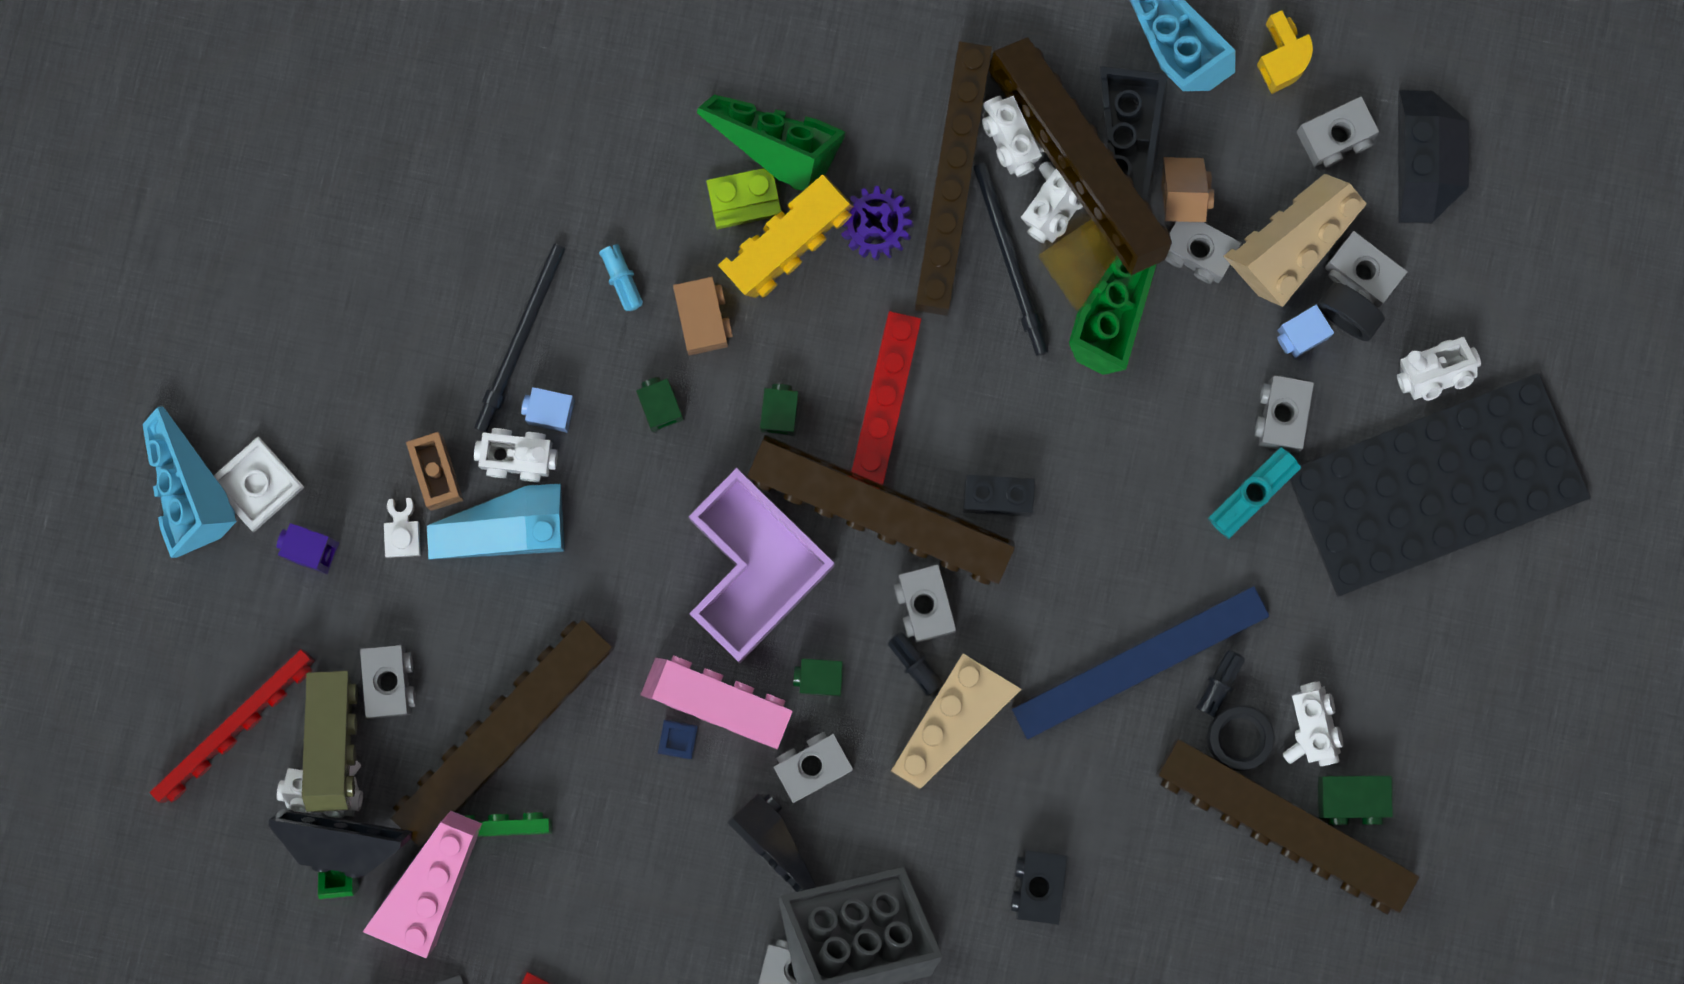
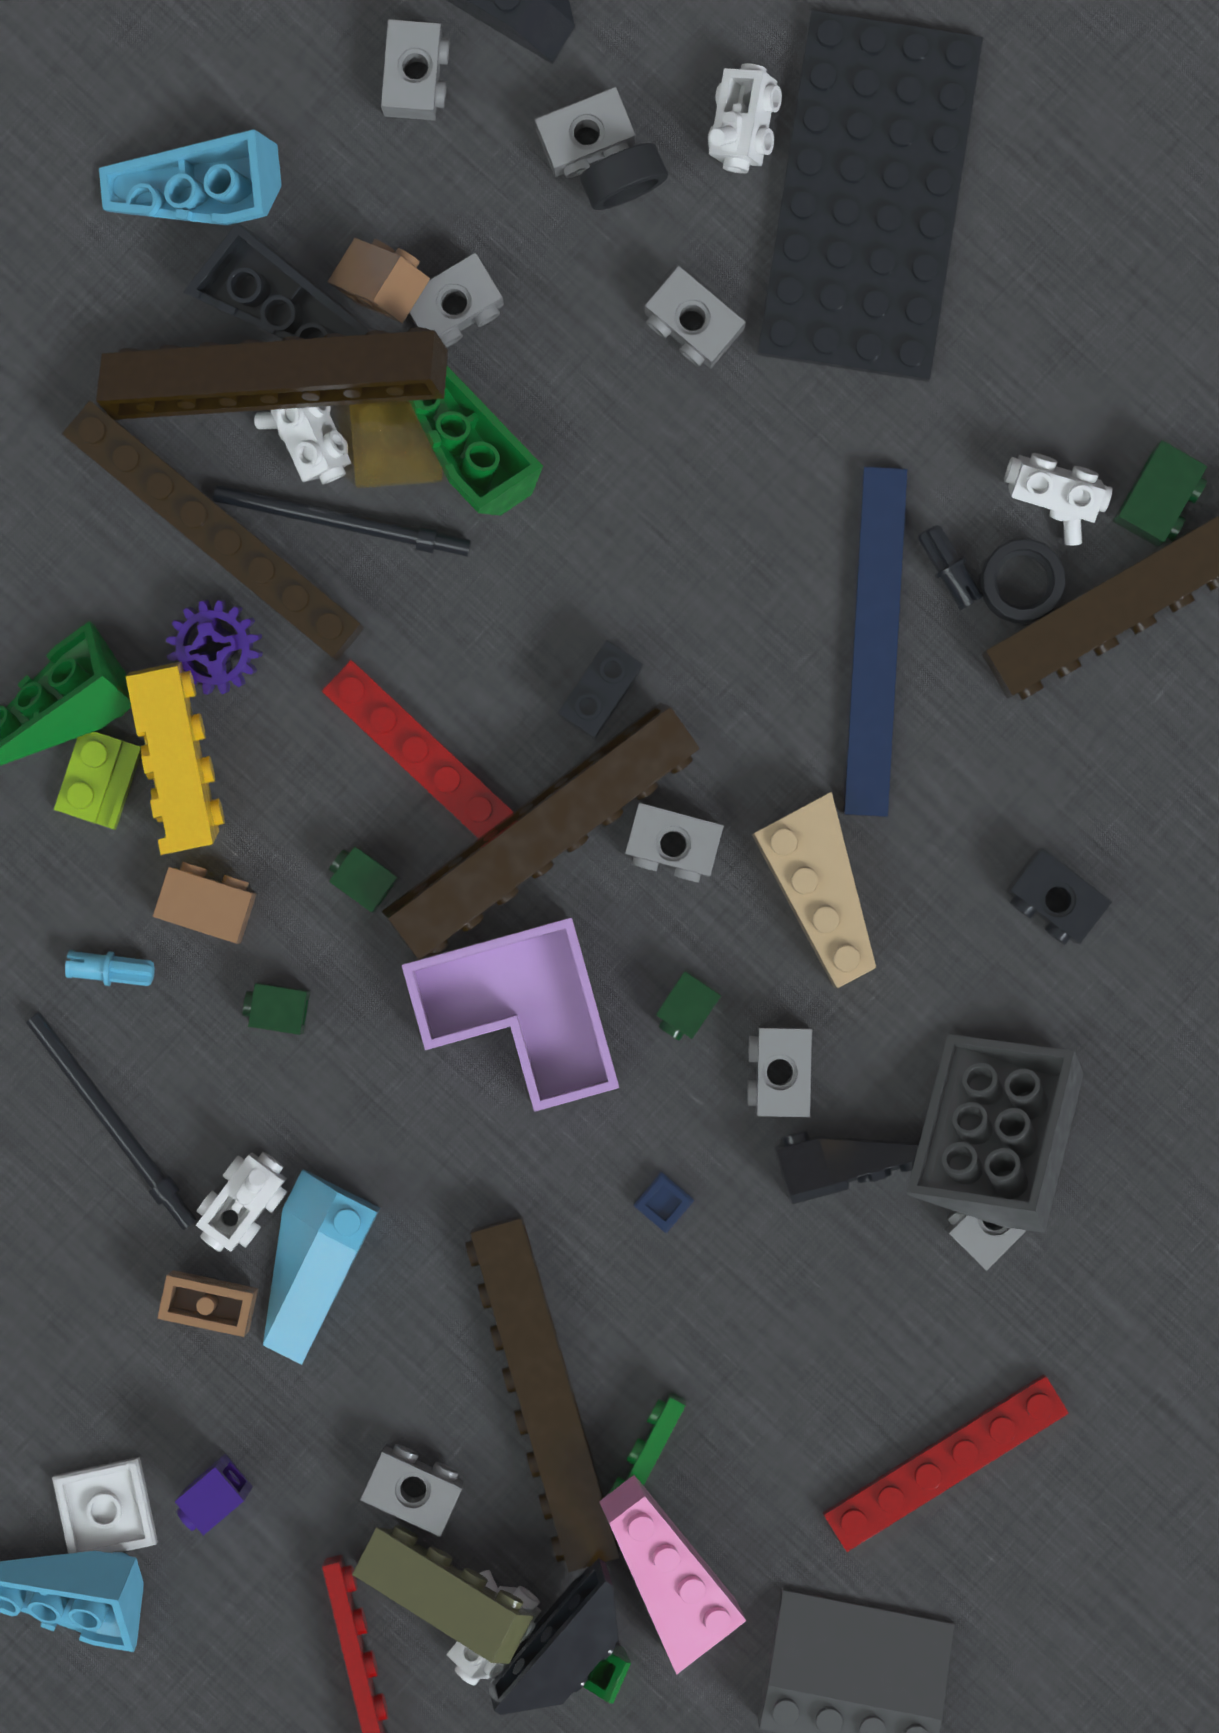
camera: 60 degrees left, 5 degrees up
(402, 536) = (258, 1379): white plate -> none
(548, 409) = (211, 1136): light blue brick -> none
(716, 701) = (648, 1137): bright pink wedge -> none
(915, 664) = (732, 892): black axle -> none
(1014, 141) = (214, 437): white brick -> none
(1269, 477) = (756, 377): teal piece -> none
(1291, 58) = (298, 72): yellow brick -> none
(1296, 240) = (507, 187): tan wedge -> none
(1304, 332) = (615, 242): light blue brick -> none

